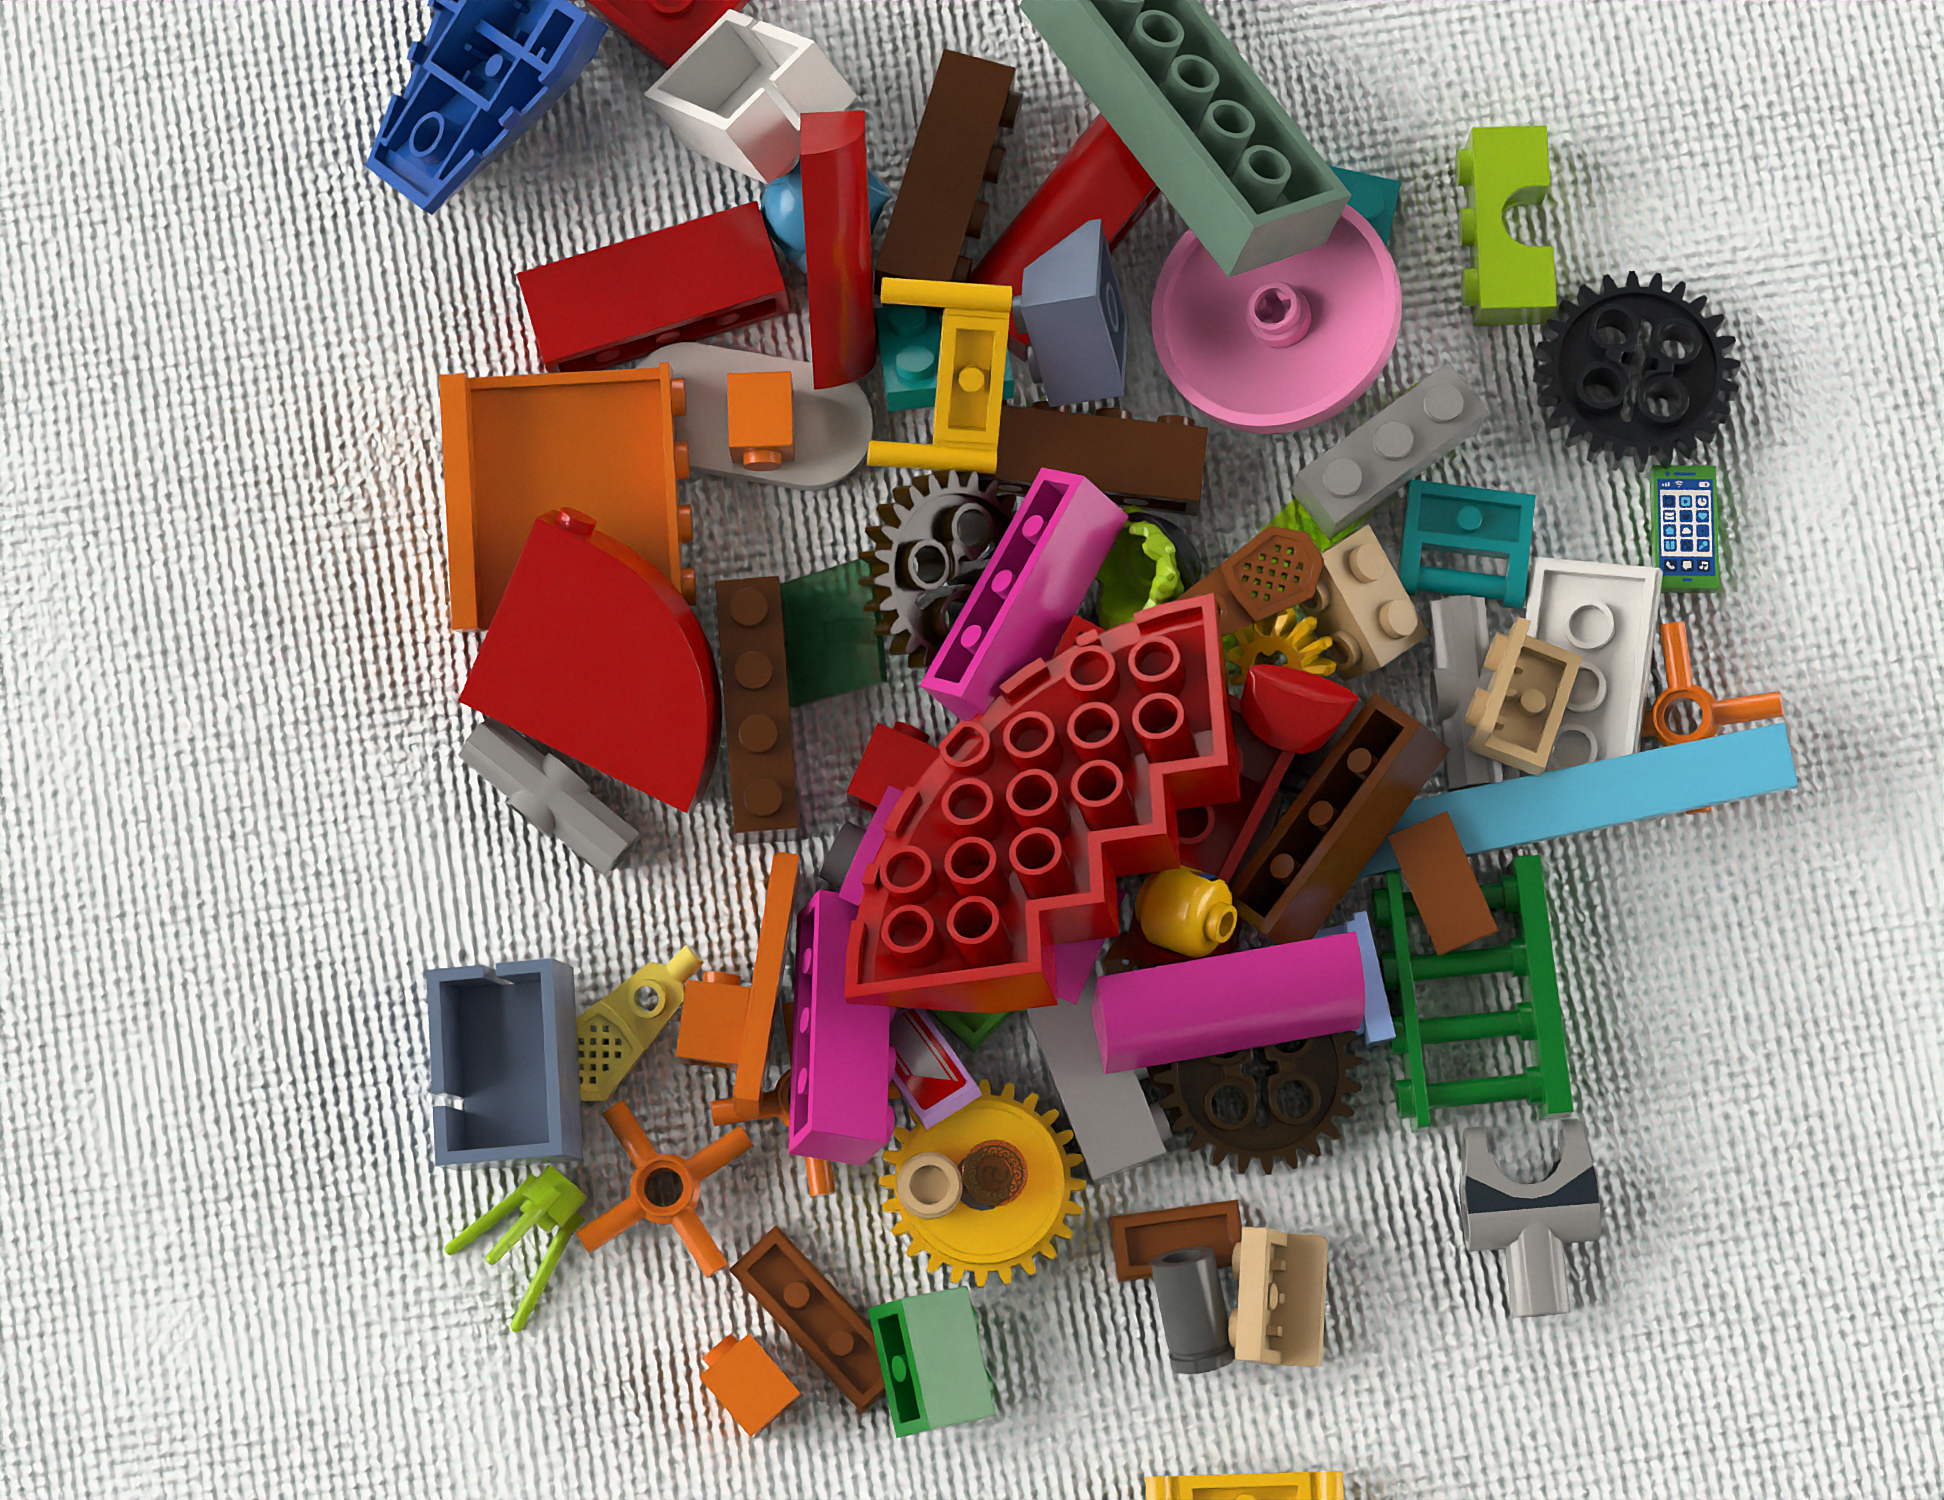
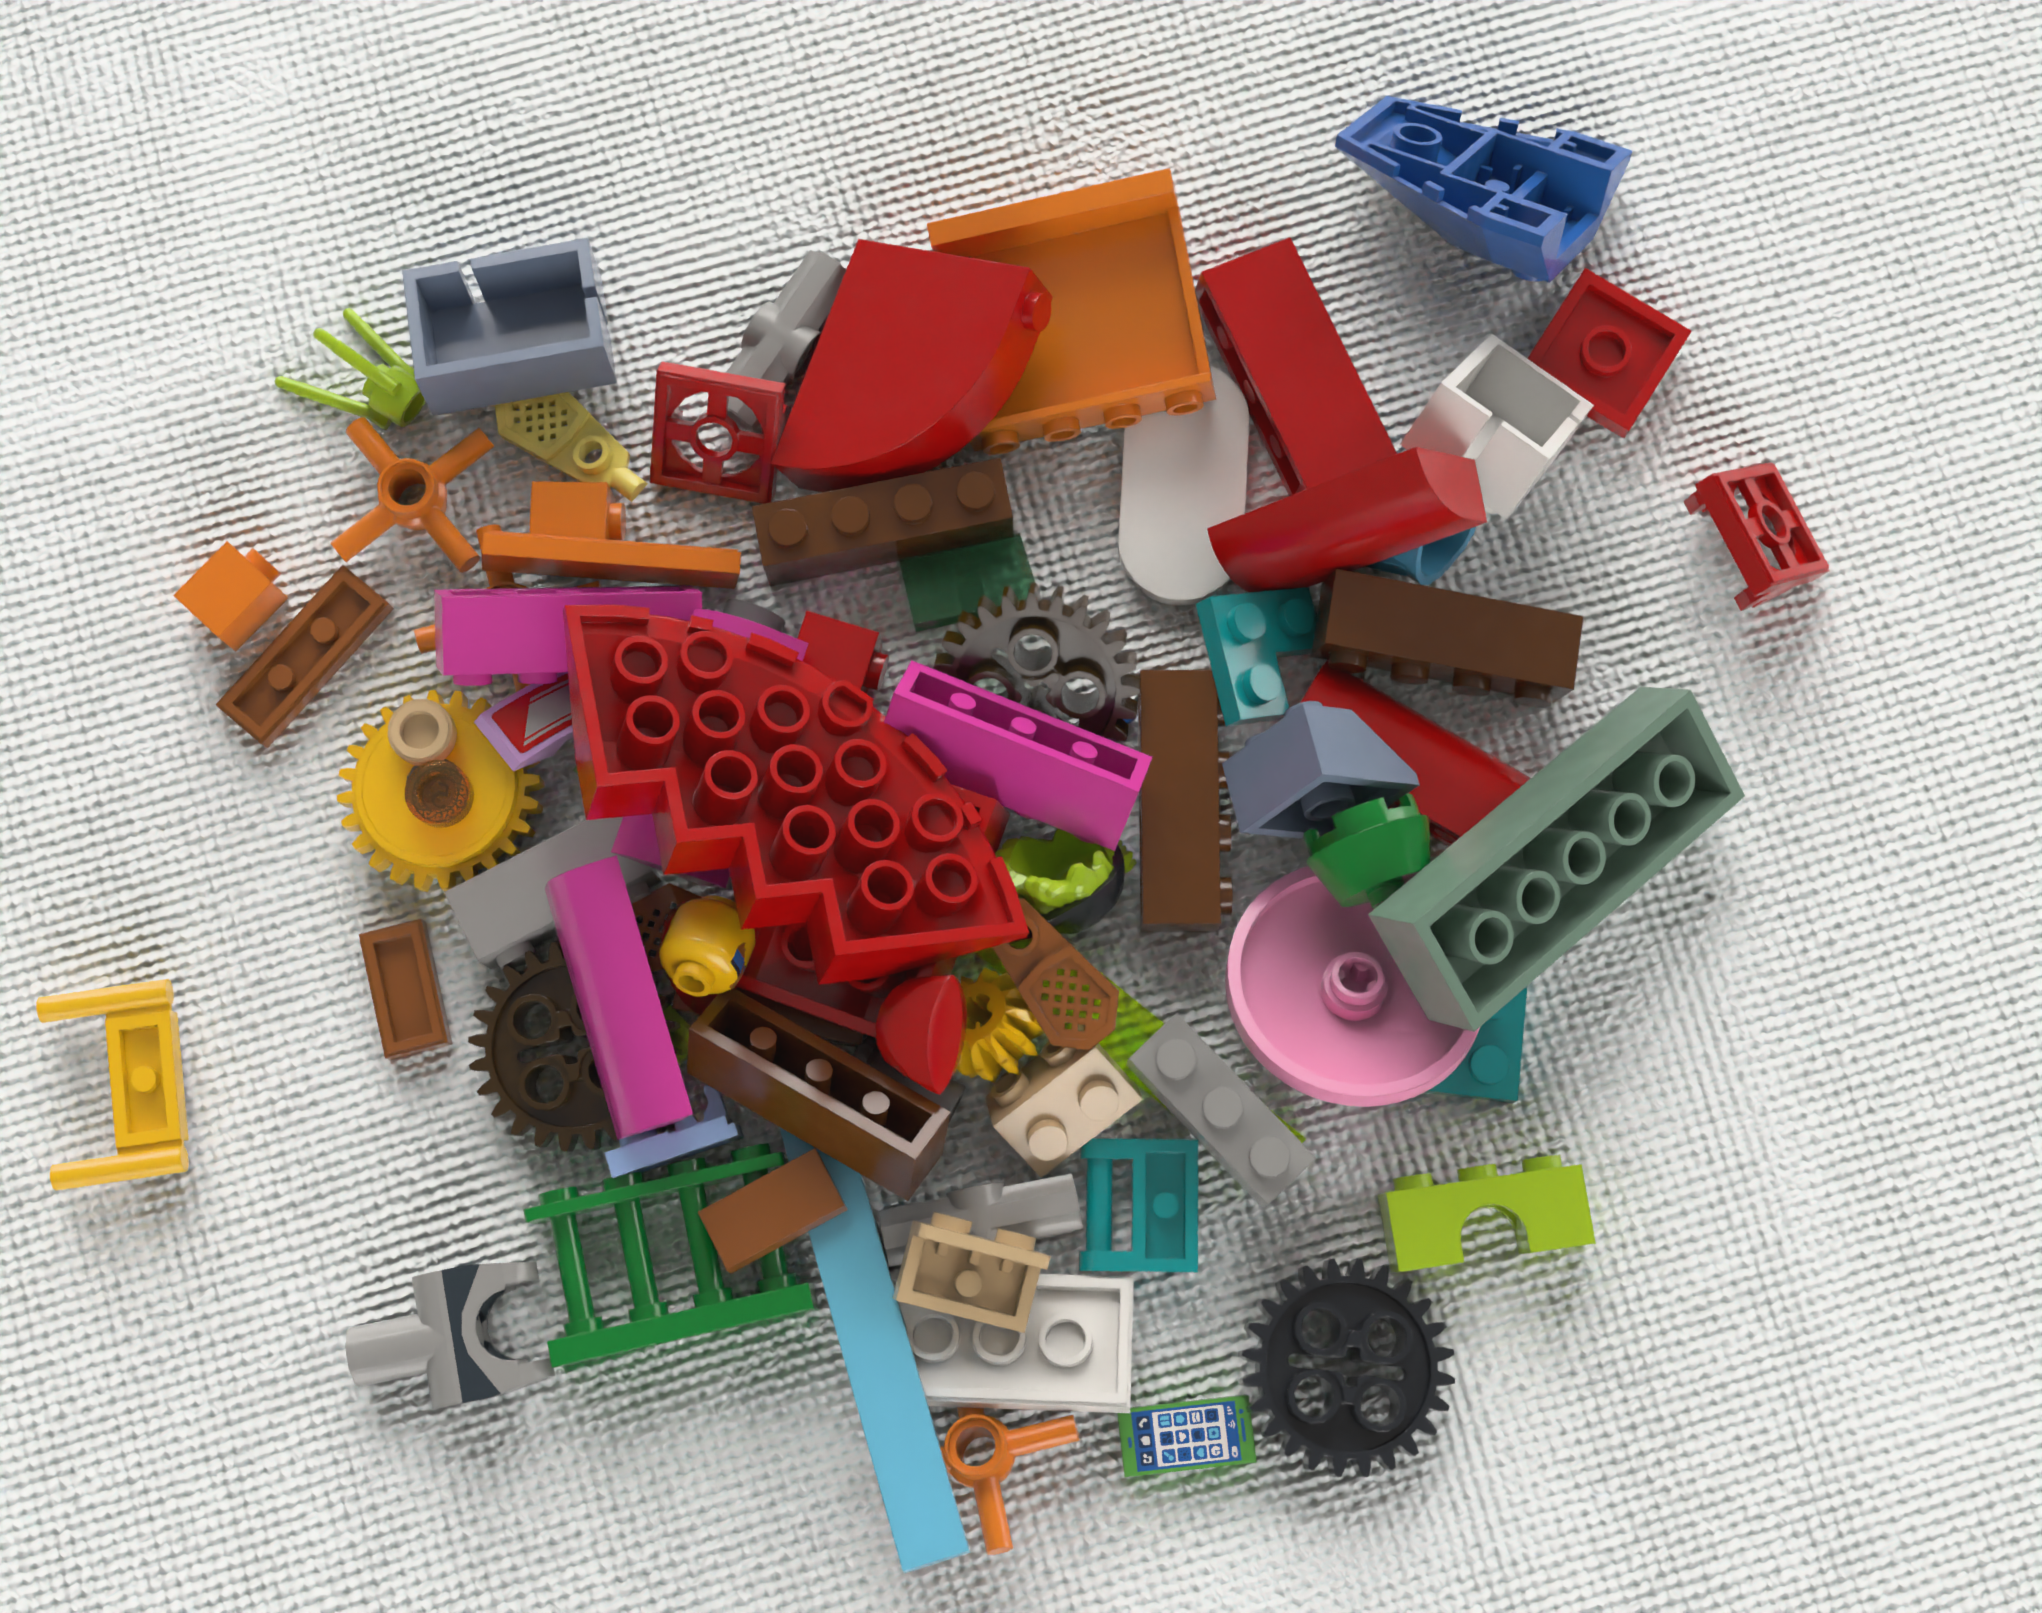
camera: 85 degrees right, 0 degrees up
(695, 846) = (674, 470): none -> red piece
(761, 419) = (1172, 485): orange brick -> none
(932, 1361) = (260, 762): brick -> none
(967, 378) = (1233, 667): yellow plate -> none
(1160, 273) = (1370, 851): none -> green cone
(1192, 1309) = (328, 1005): dark grey piece -> none
(1279, 1298) = (347, 1089): tan bracket -> none

